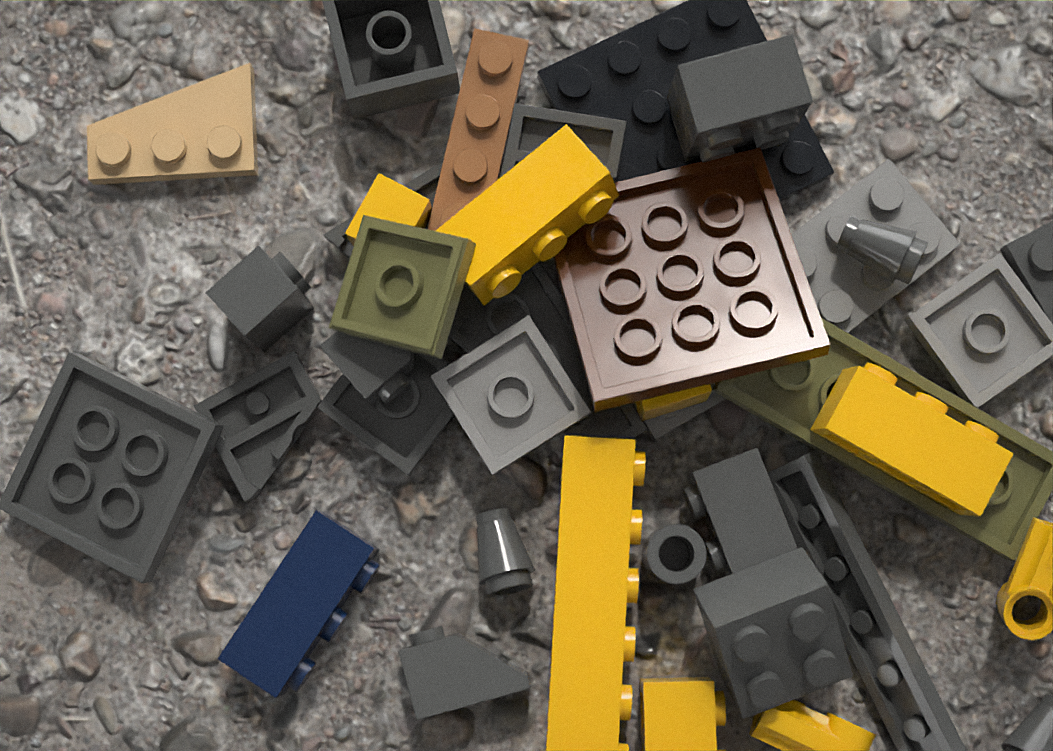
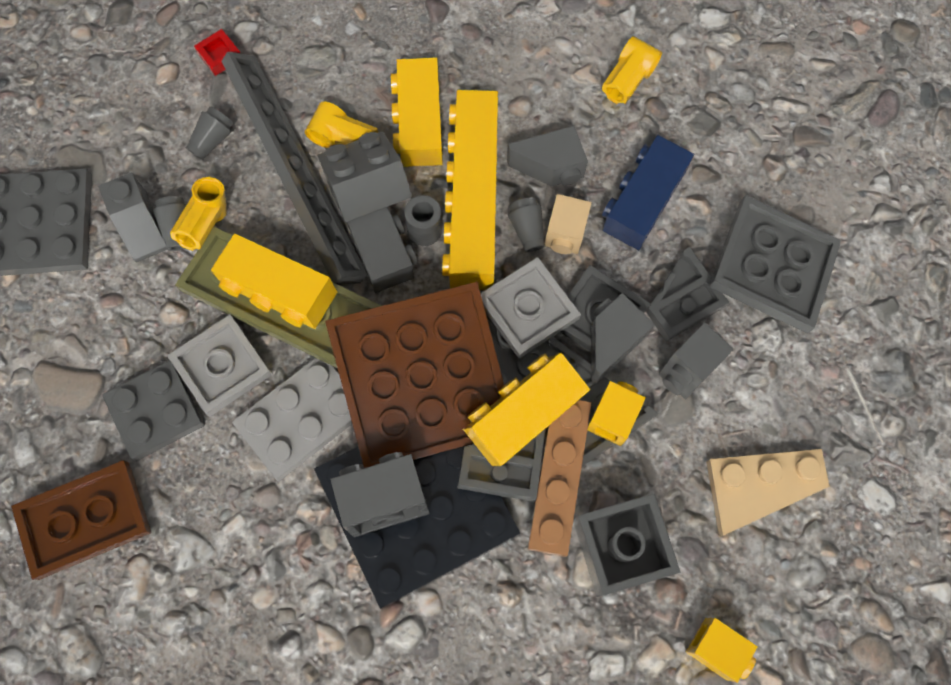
camera: 175 degrees right, 10 degrees down
(402, 286) = (605, 354): olive tile -> none
(438, 546) = (567, 224): none -> tan brick
(883, 248) = (283, 407): dark grey cone -> none

